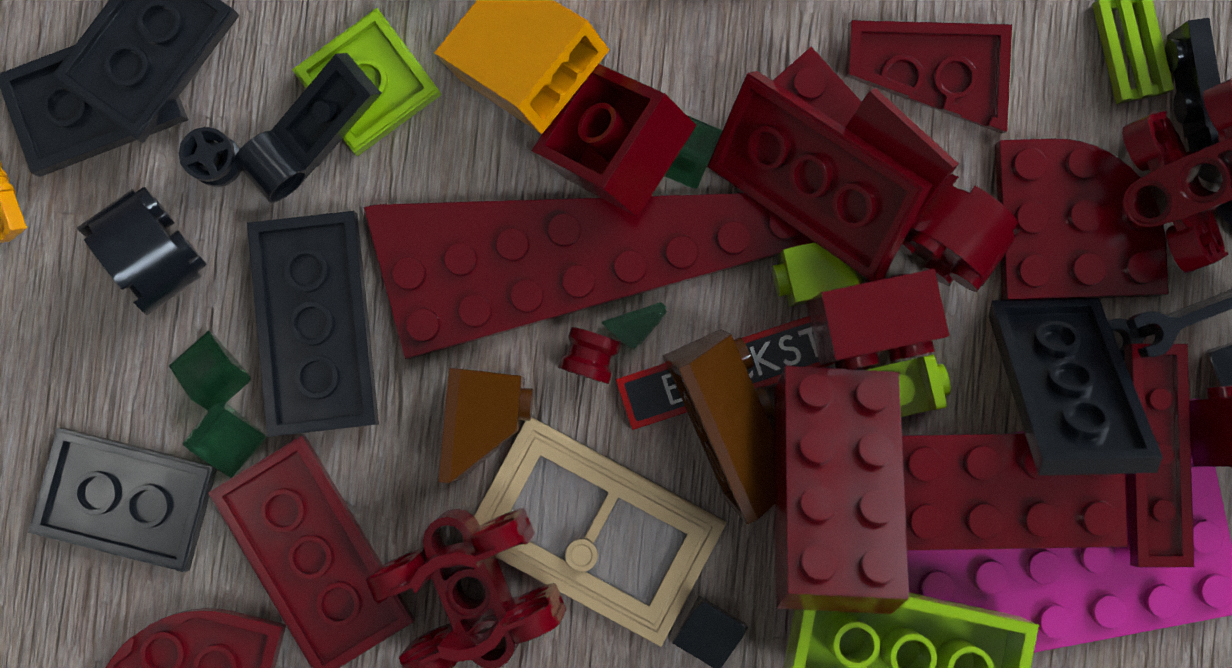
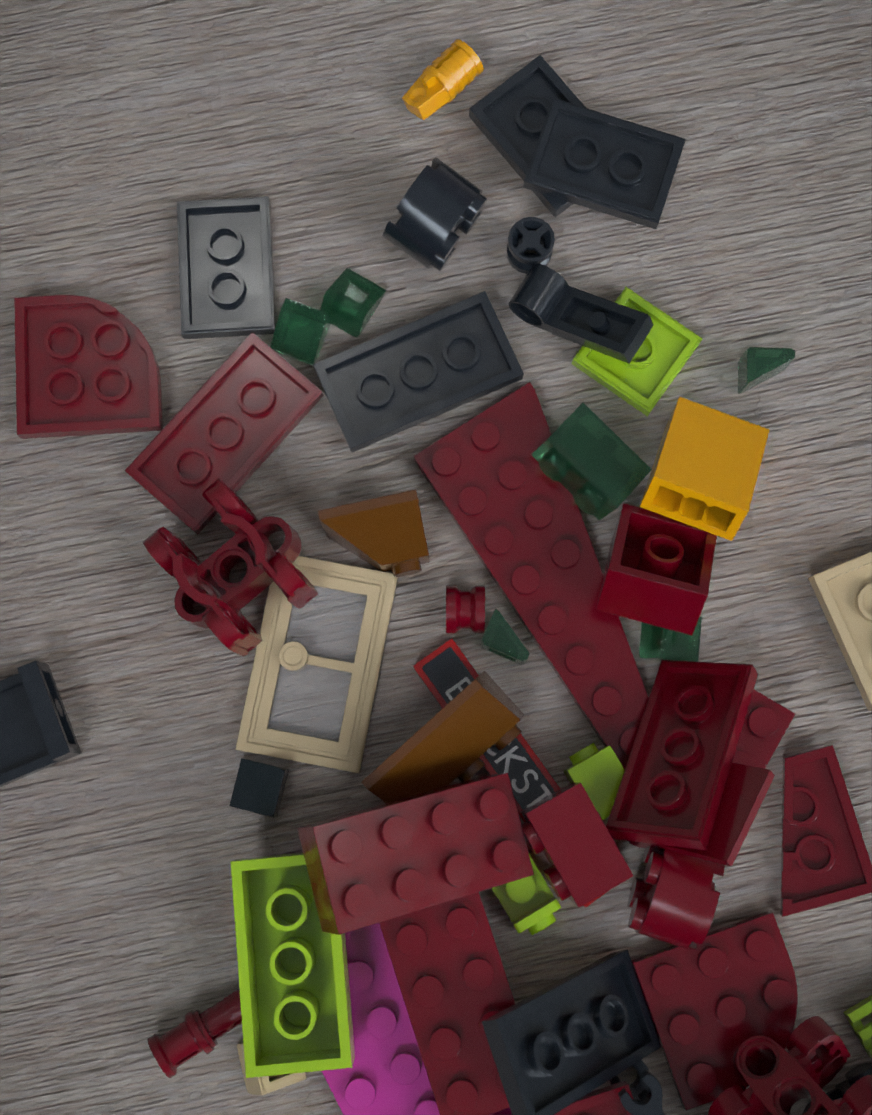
camera: 70 degrees right, 5 degrees down
(475, 170) = (591, 462): none -> clear green brick

